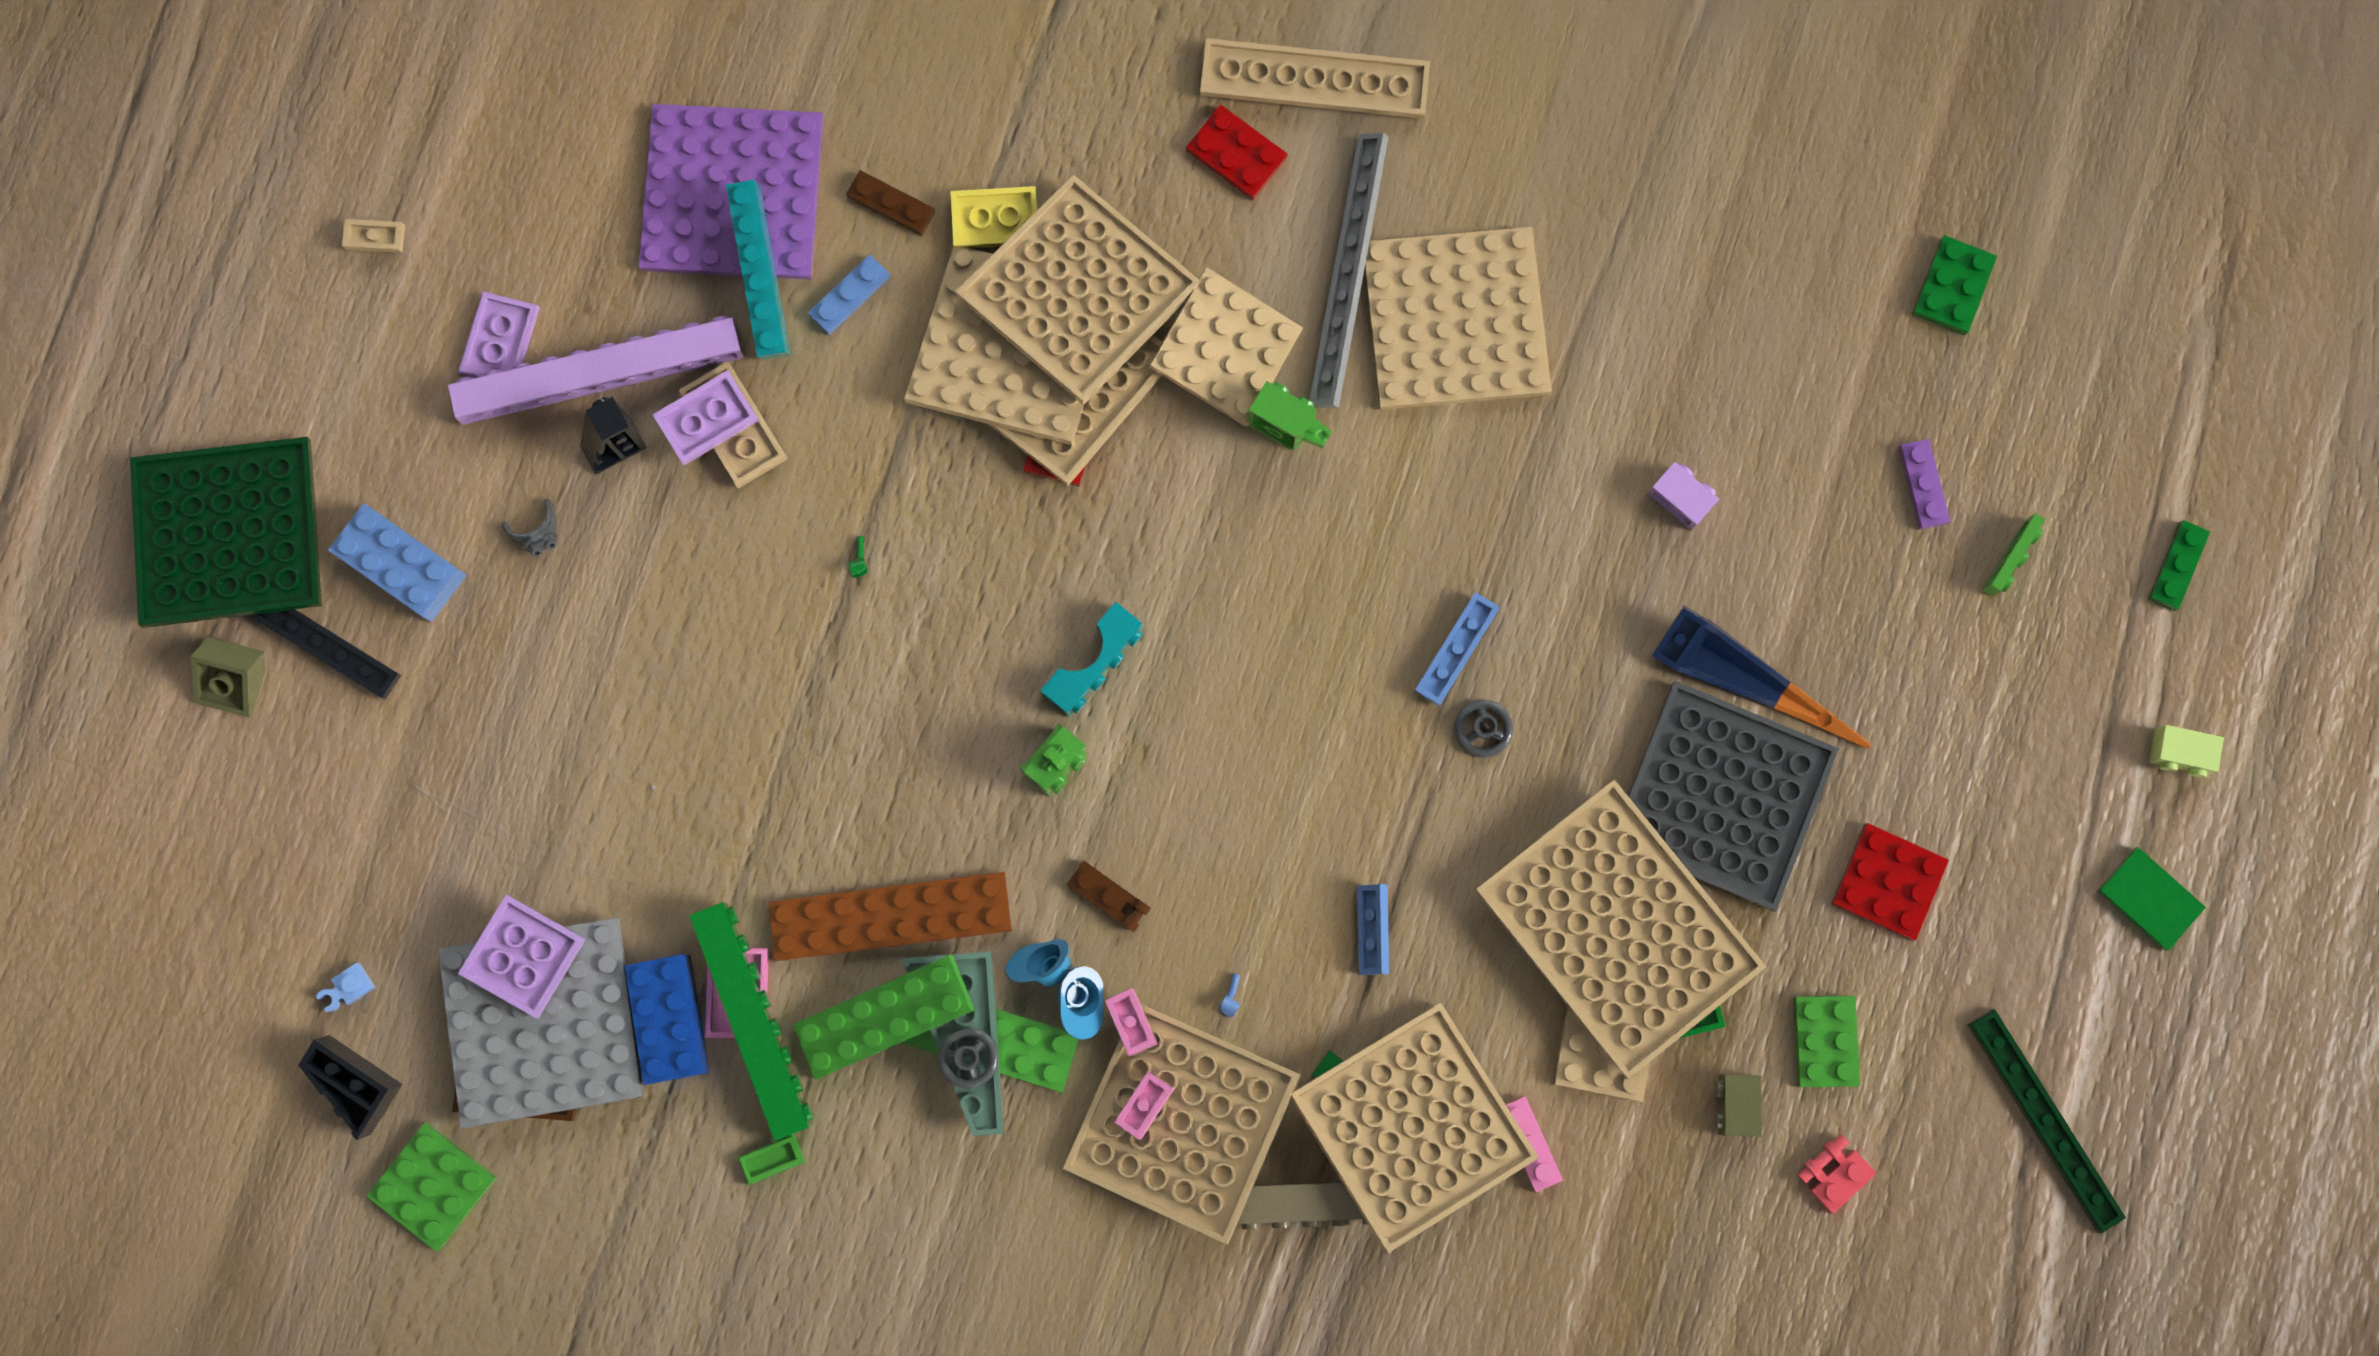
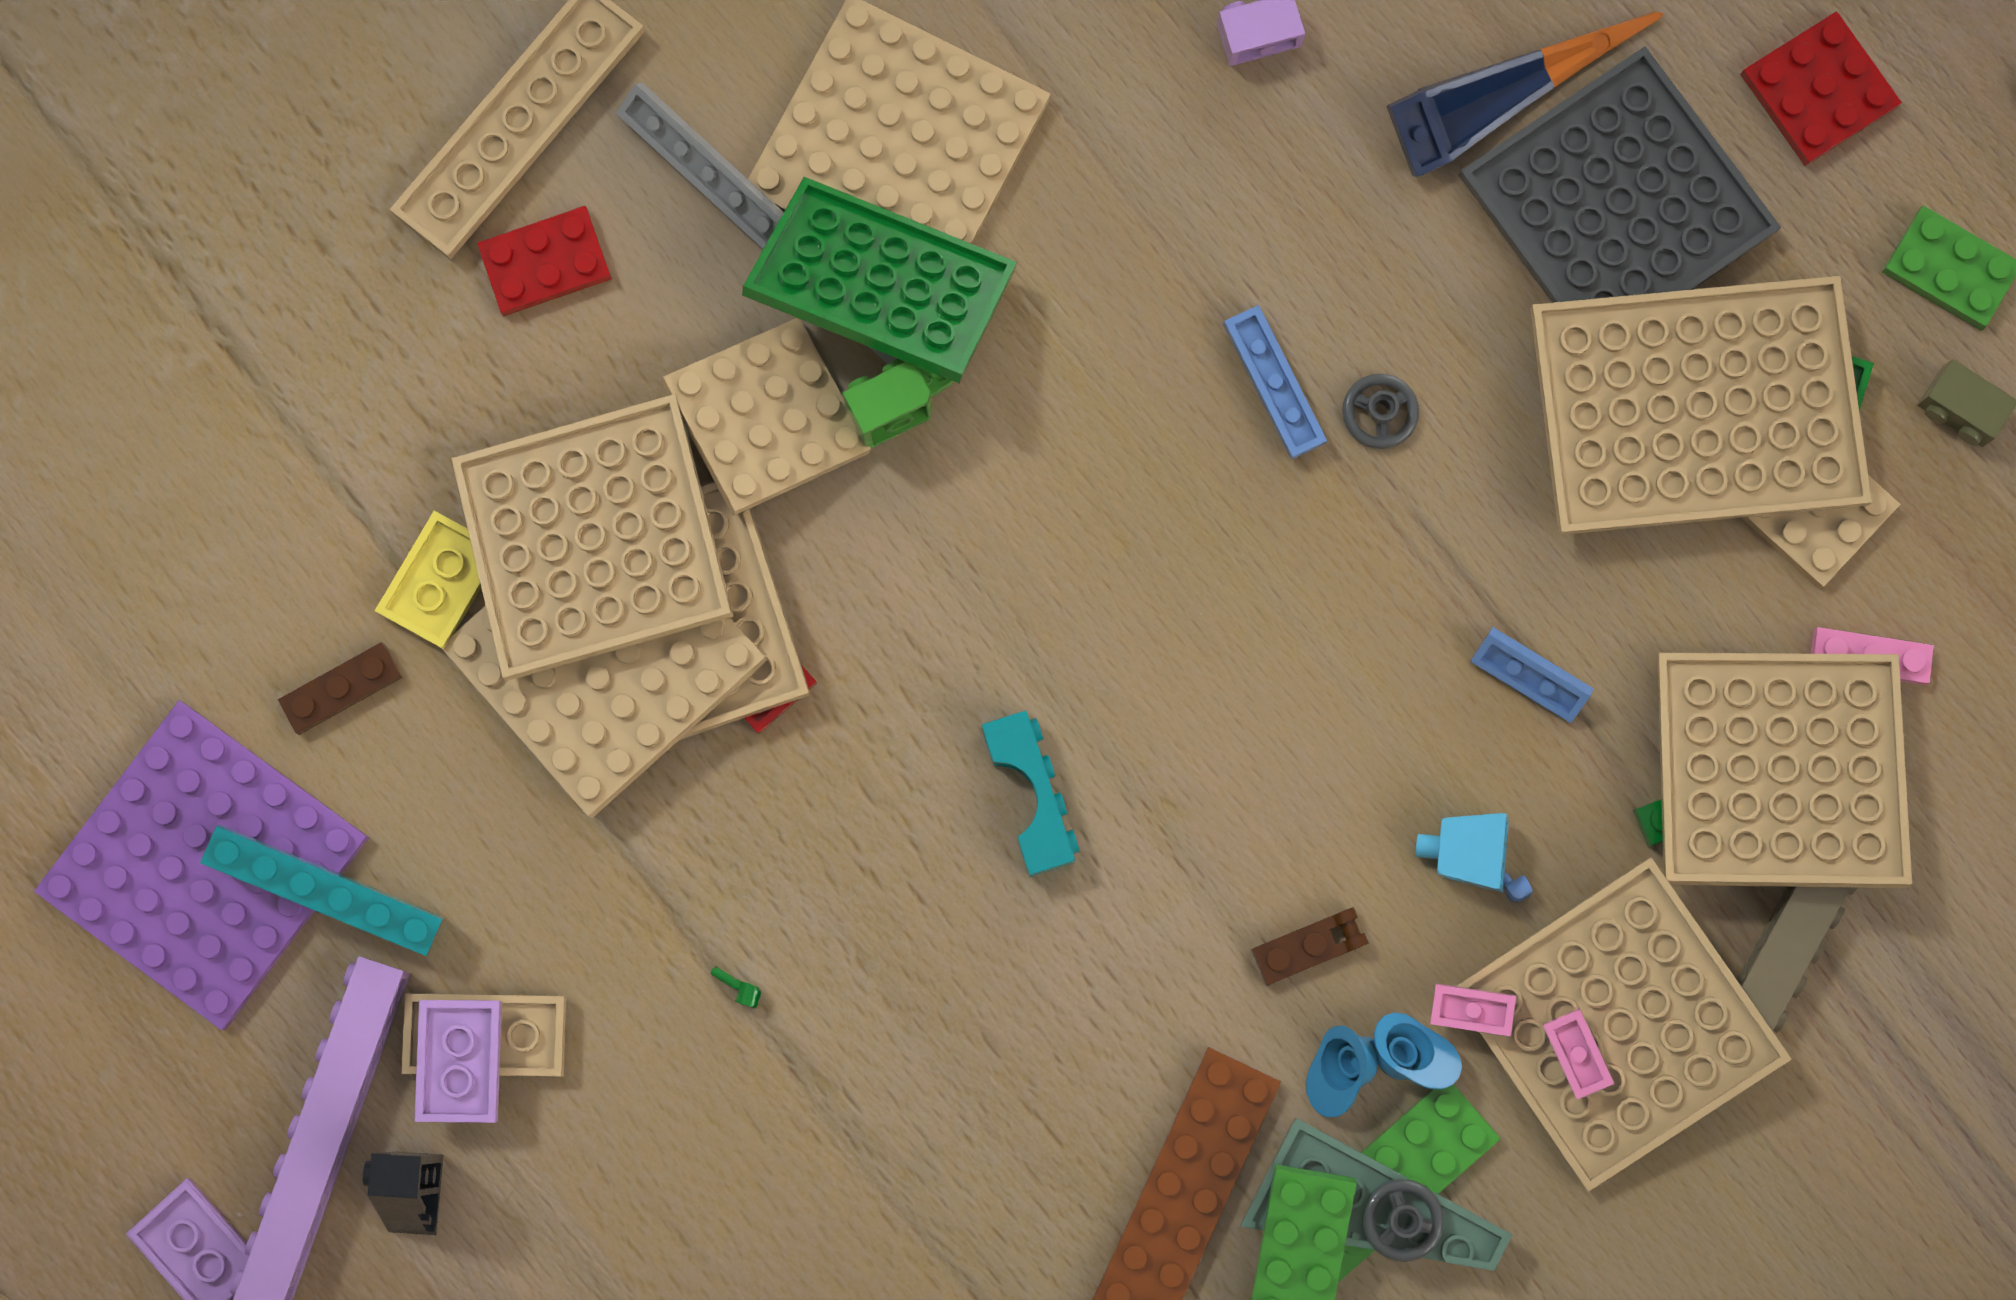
camera: 55 degrees left, 0 degrees up
(849, 294) = (418, 804): medium blue plate -> none
(1055, 760) = (1121, 909): bright green hinge -> none
(1234, 958) = (1469, 849): none -> medium azure torso
(1355, 359) = (880, 279): none -> green plate

